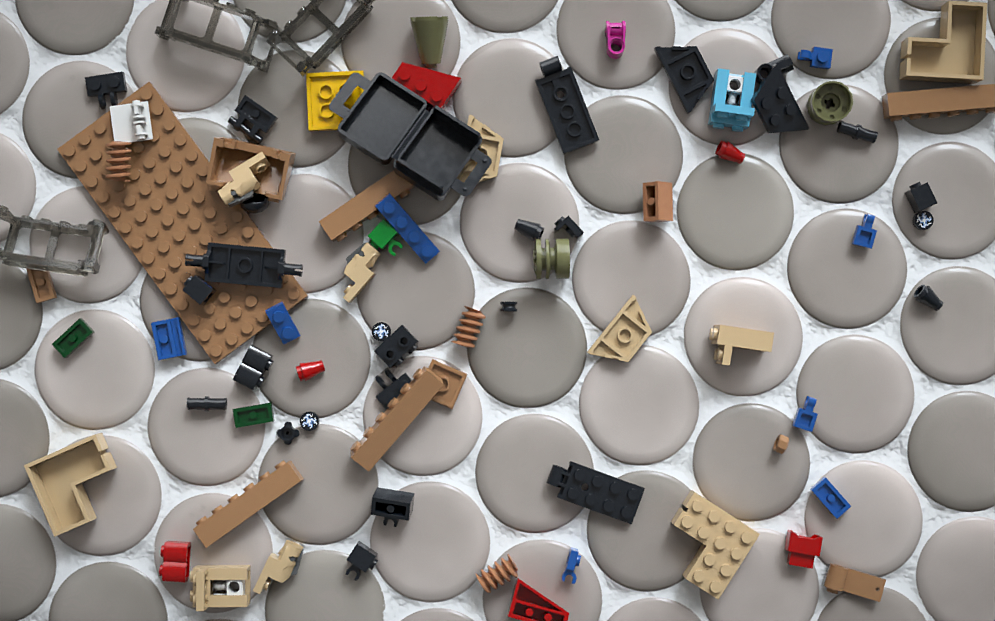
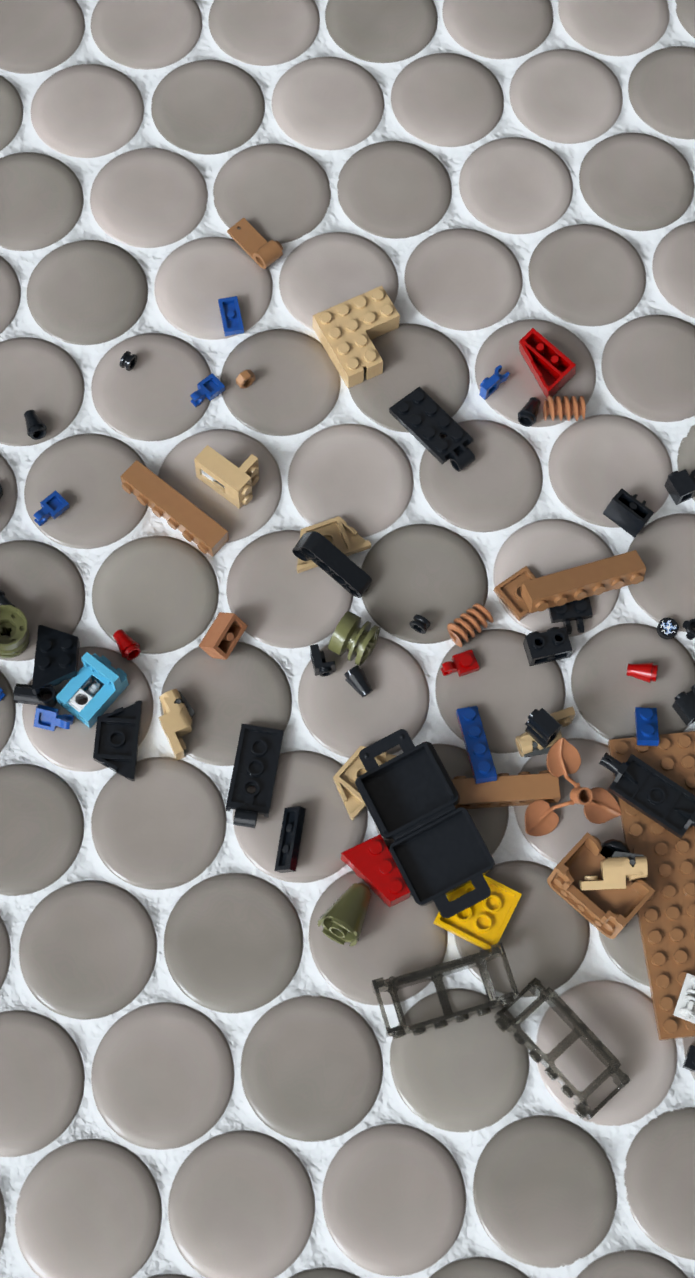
camera: 155 degrees left, 20 degrees down
(254, 113) = (567, 942): black plate -> none
(286, 236) = (597, 802): none -> nougat plant
(359, 262) = (542, 727): none -> black brick
(381, 331) = (554, 669): black tile -> none
(383, 236) = (504, 751): green brick -> none
(455, 294) = (463, 664): none -> red plate
(507, 71) = (290, 839): none -> black plate
(525, 554) = (528, 414): none -> black cone
(608, 313) = (331, 560): none -> black beam
(615, 35) = (164, 811): dark pink piece -> none
(650, 112) = (176, 720): none -> tan plate
(749, 57) = (48, 718): none -> plate
(766, 290) = (174, 508): none -> medium nougat brick
(802, 549) = (281, 290): red piece -> none
(889, 402) = (128, 360): none -> black bush

